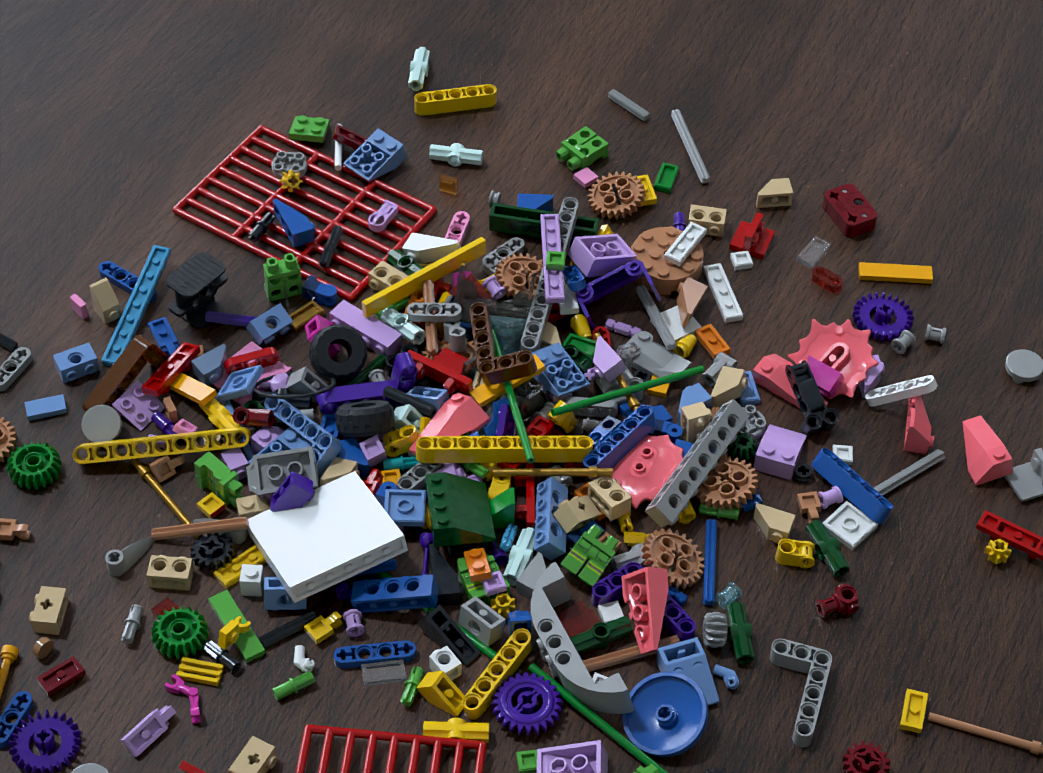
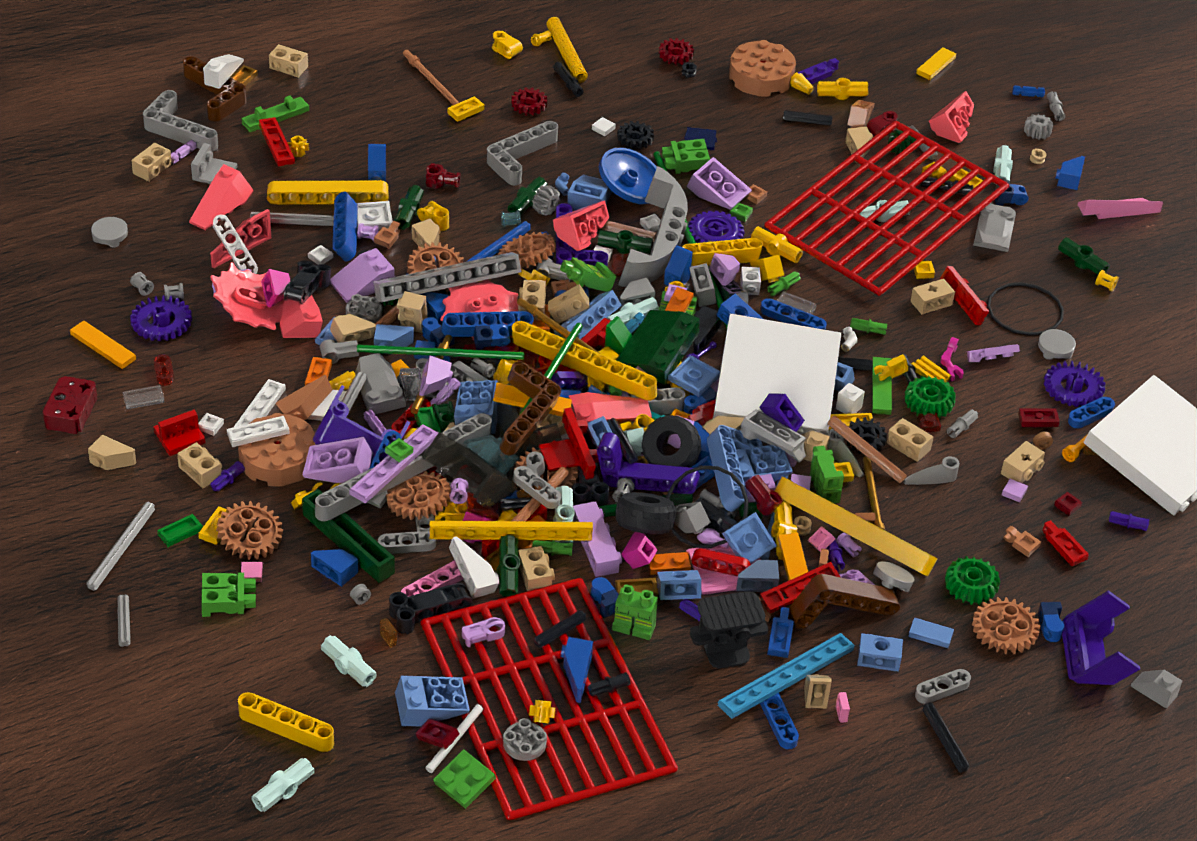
camera: 145 degrees left, 5 degrees down
(43, 579) = (1014, 490): none -> lavender tile
(294, 349) = (669, 562): none -> orange plate
(442, 212) = (427, 604): none -> black piece
(476, 654) = (724, 268): none -> lavender slope
(901, 567) = (377, 162): none -> blue slope
(911, 518) = (325, 191): none -> yellow beam

